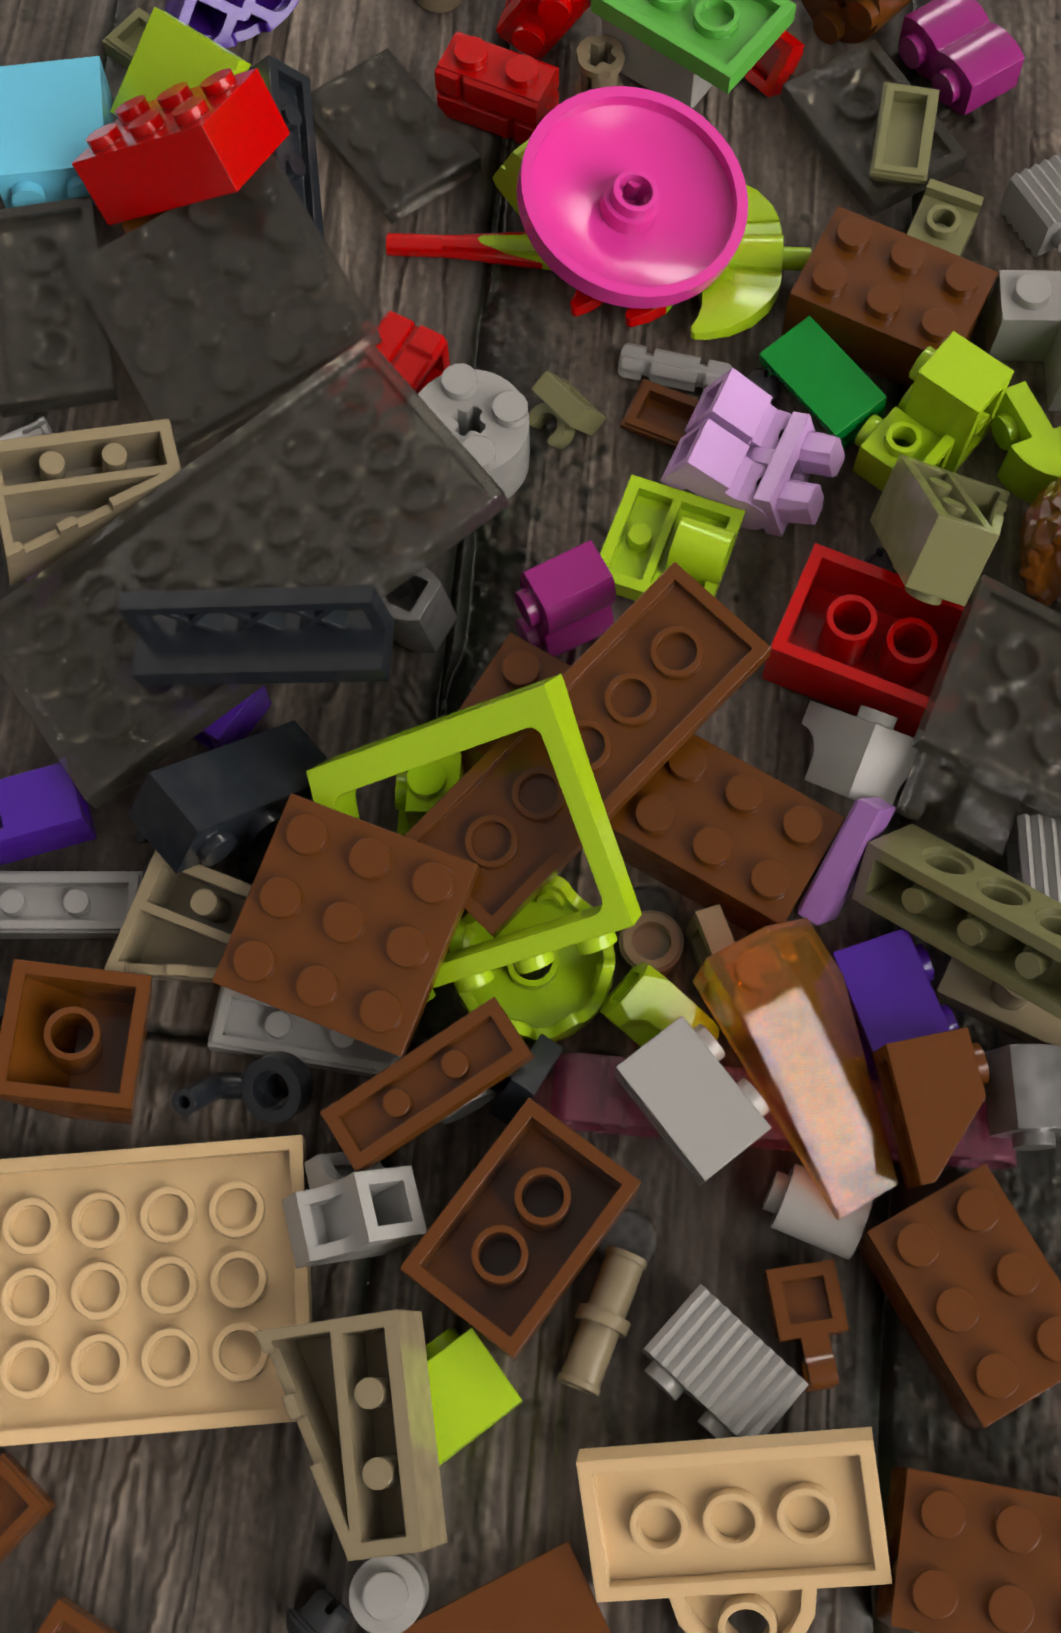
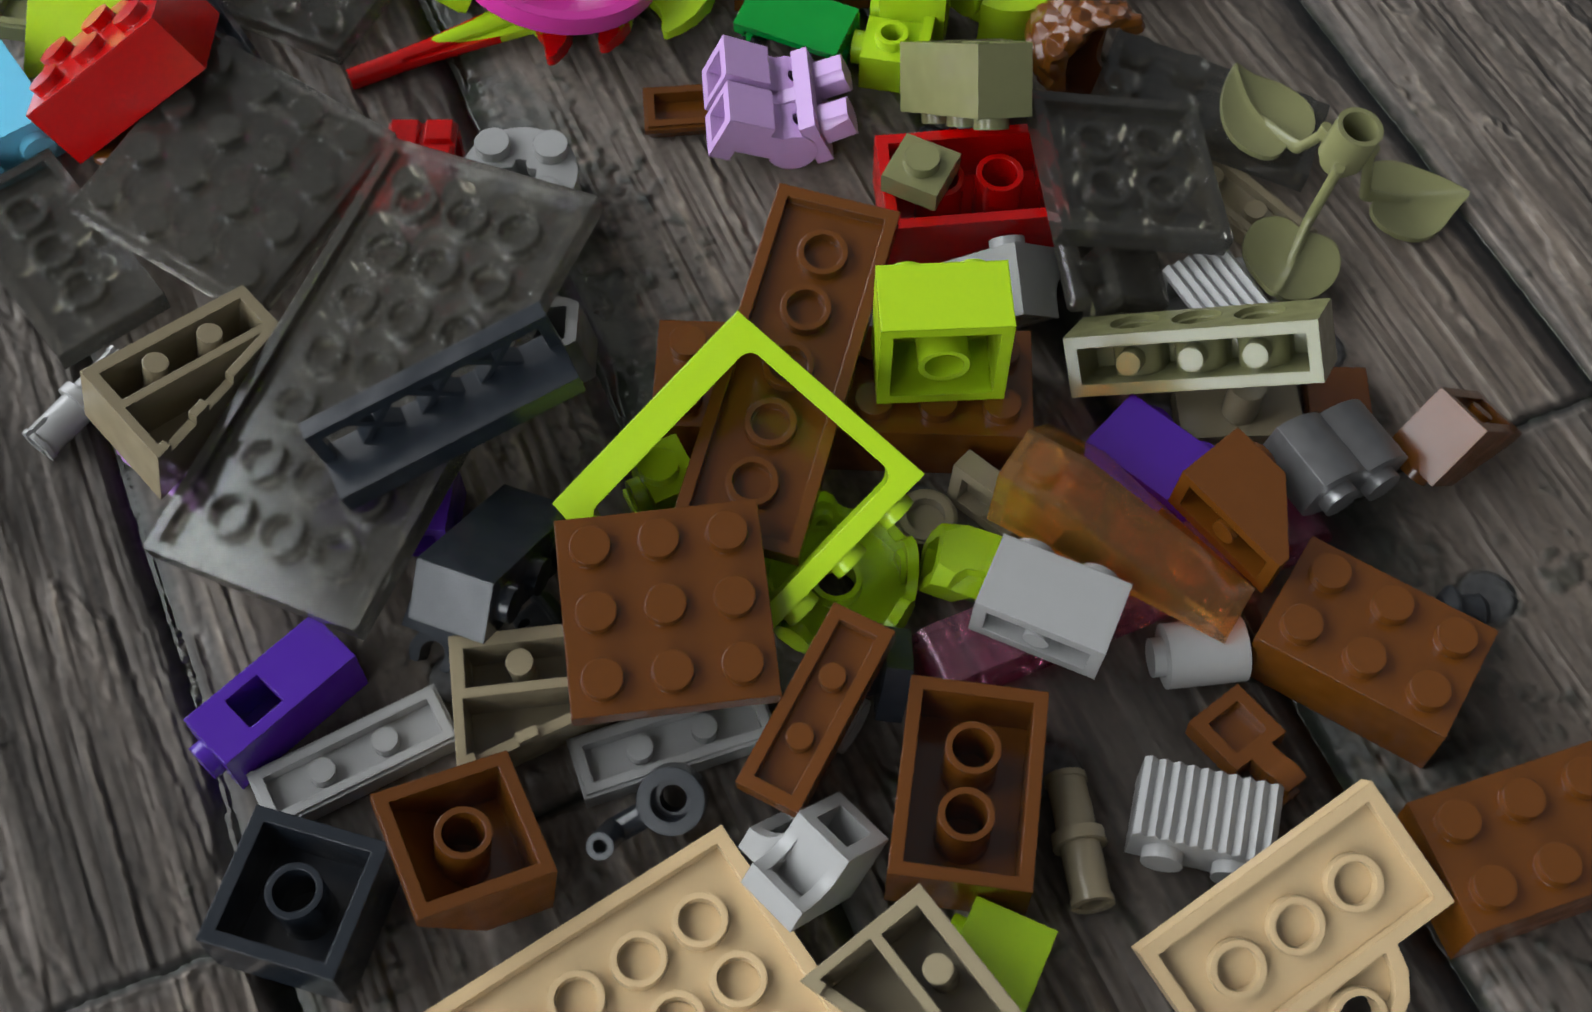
camera: 30 degrees left, 10 degrees down
(566, 600) = (692, 270): magenta brick -> none
(567, 406) = (592, 134): olive tile -> none
(664, 527) = (732, 200): lime plate -> none
(669, 368) = (659, 71): light grey axle -> none
(736, 786) = (942, 331): none -> lime brick
(832, 605) = (920, 172): none -> olive plate
(843, 861) = (1050, 364): medium lavender tile -> none

